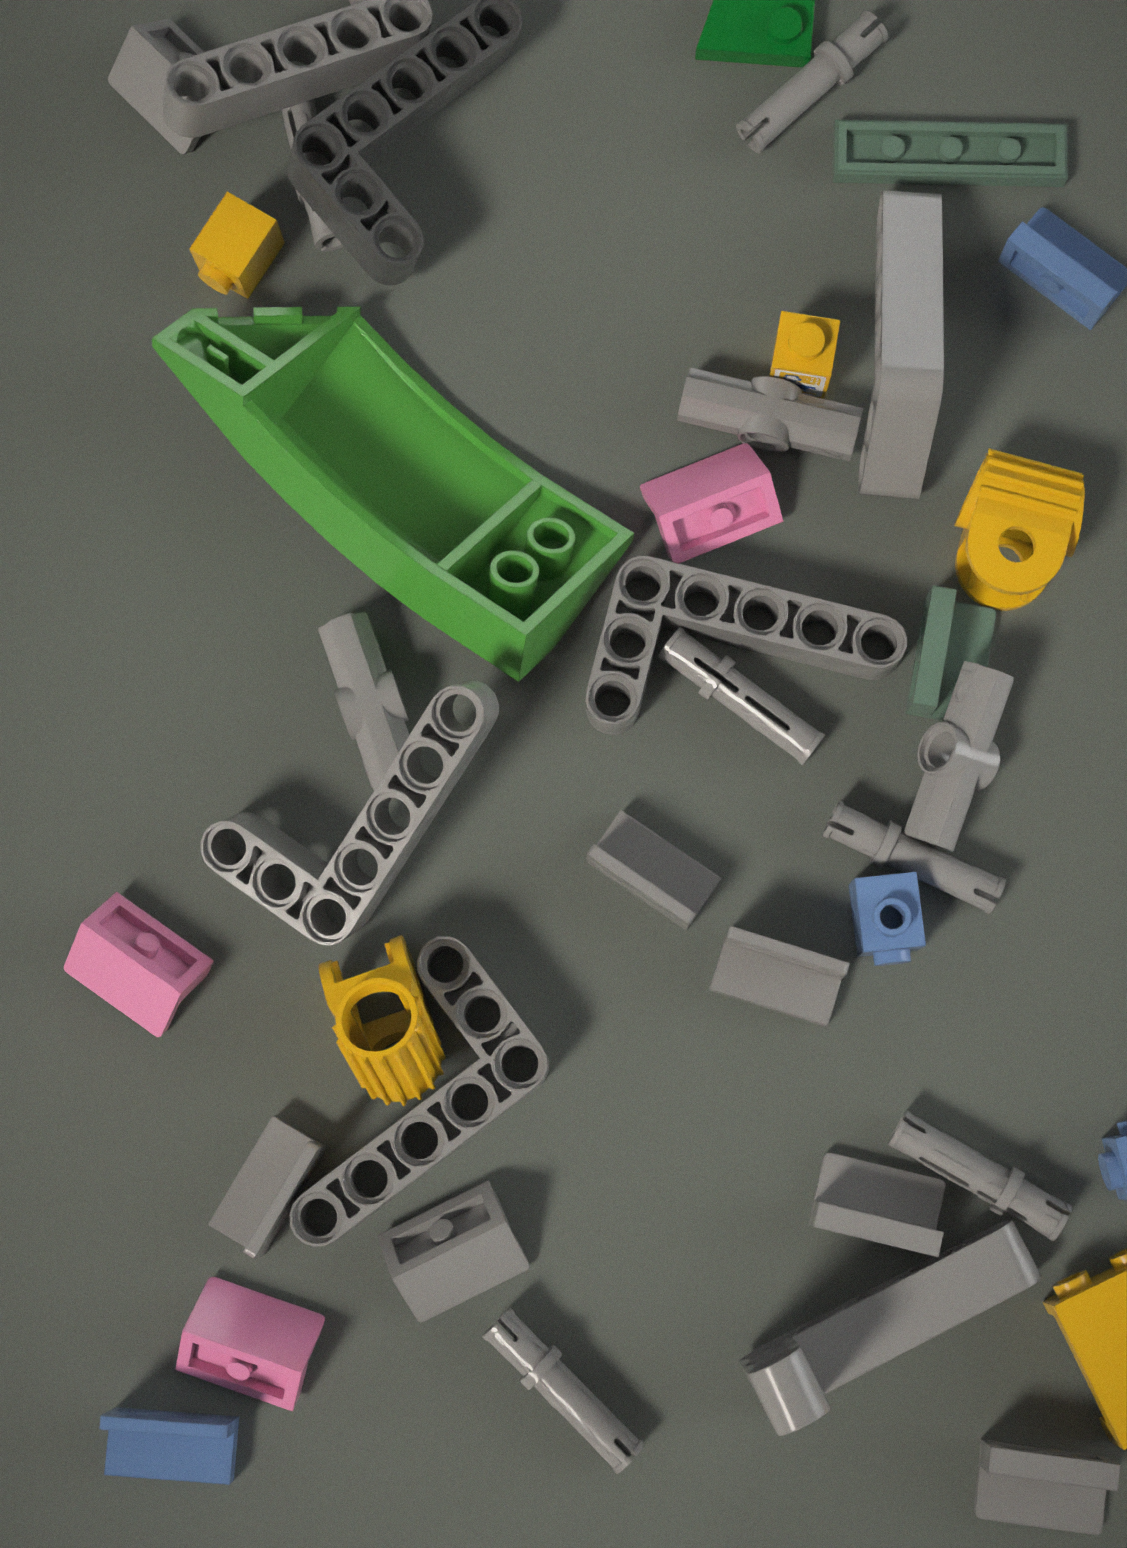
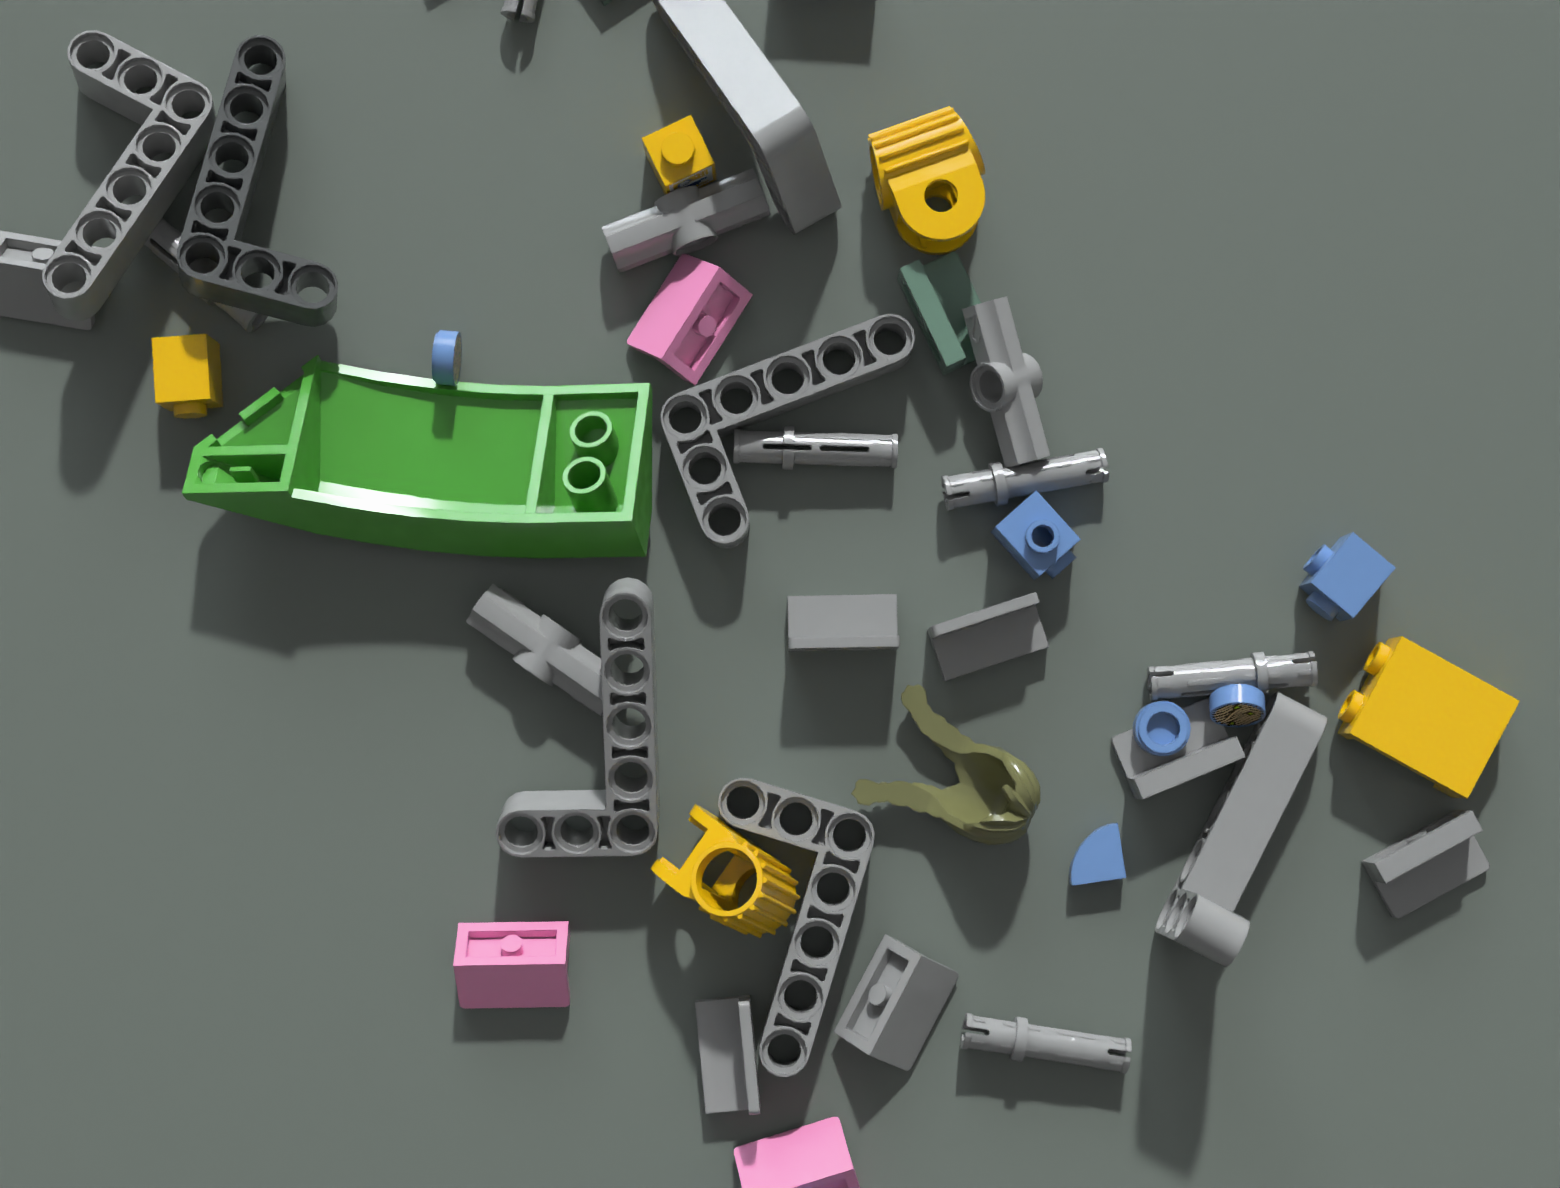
camera: 40 degrees left, 5 degrees up
(471, 387) = (447, 357): none -> medium blue tile
(664, 1129) = (994, 790): none -> olive hair
(735, 1253) = (1098, 857): none -> medium blue tile
(878, 1176) = (1161, 728): none -> medium blue tile
(964, 1205) = (1237, 705): none -> tile

